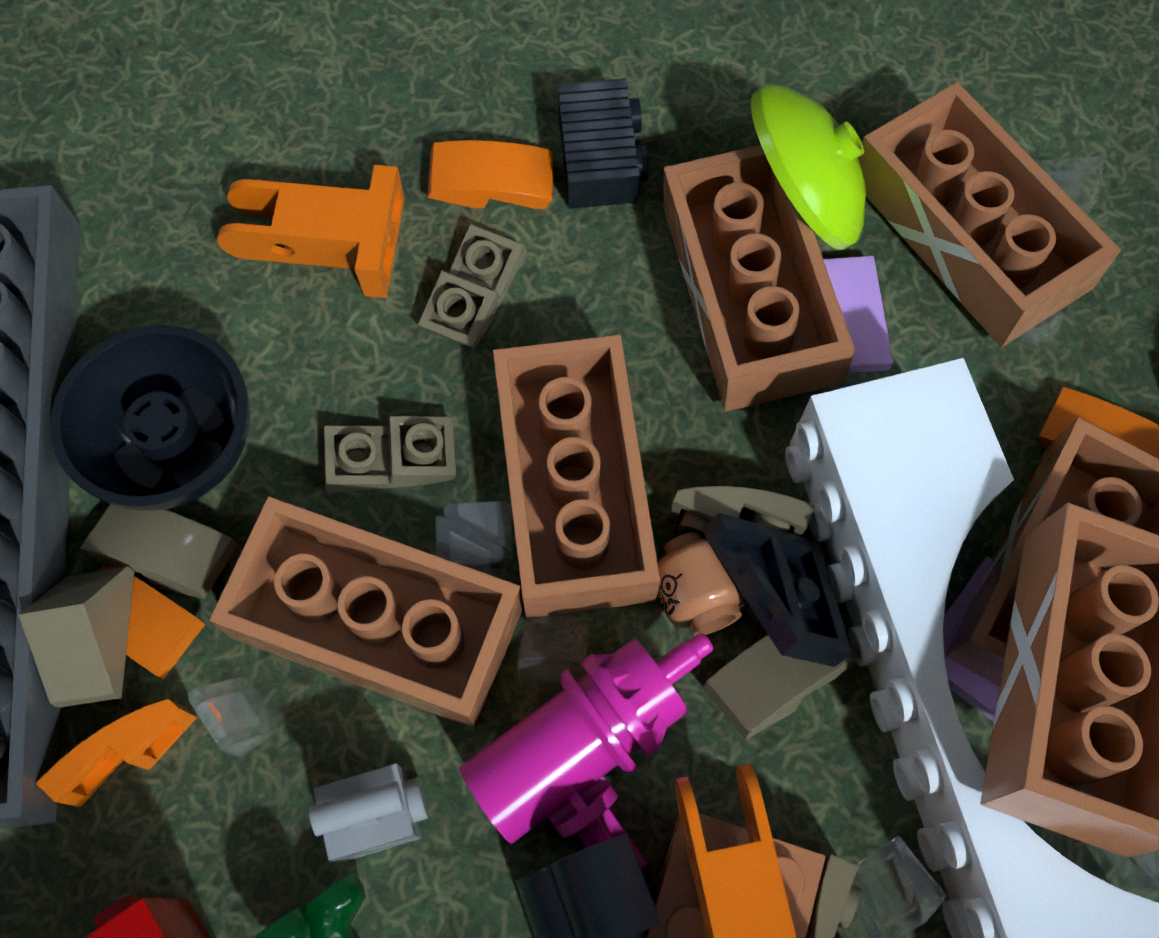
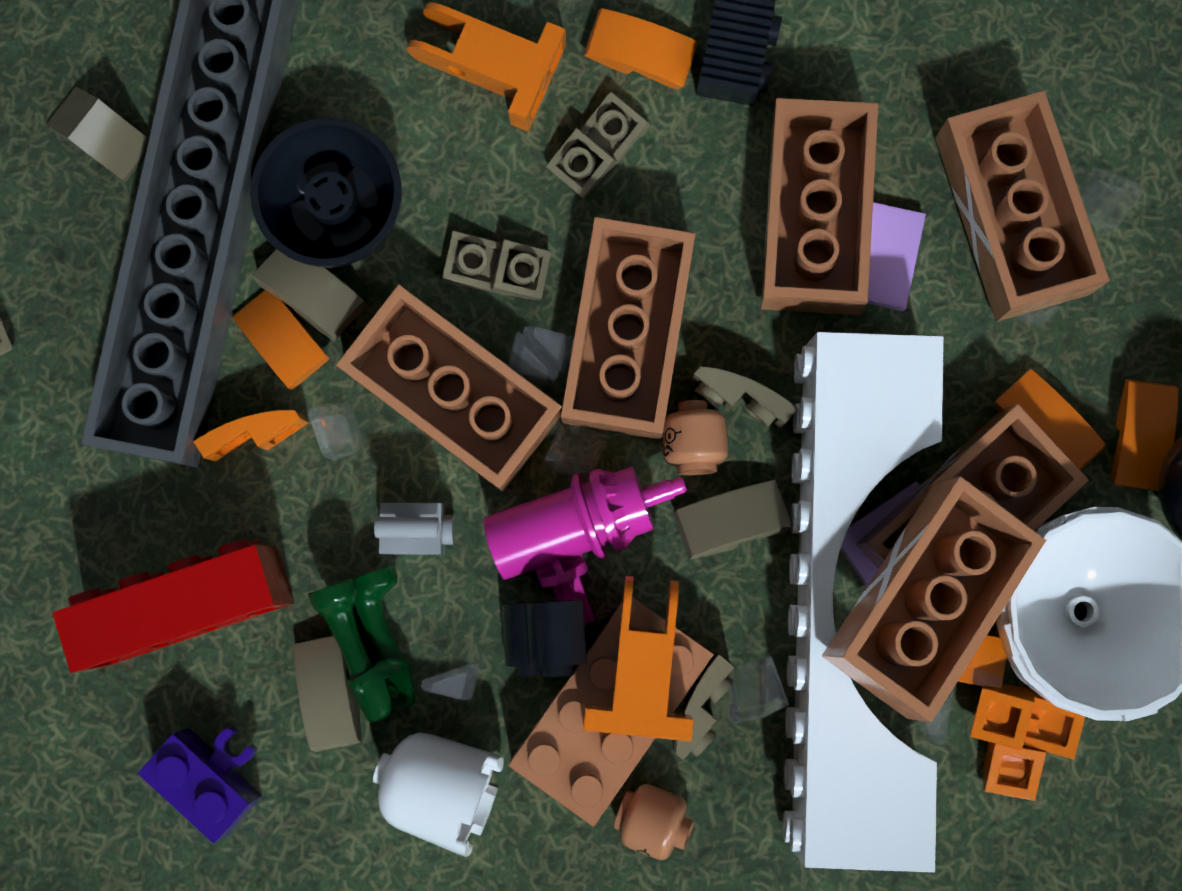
camera: 20 degrees right, 15 degrees up
(81, 636) = (243, 343): dark tan slope -> none
(784, 586) = (752, 461): black wing -> none
(813, 162) = (895, 128): lime dish -> none

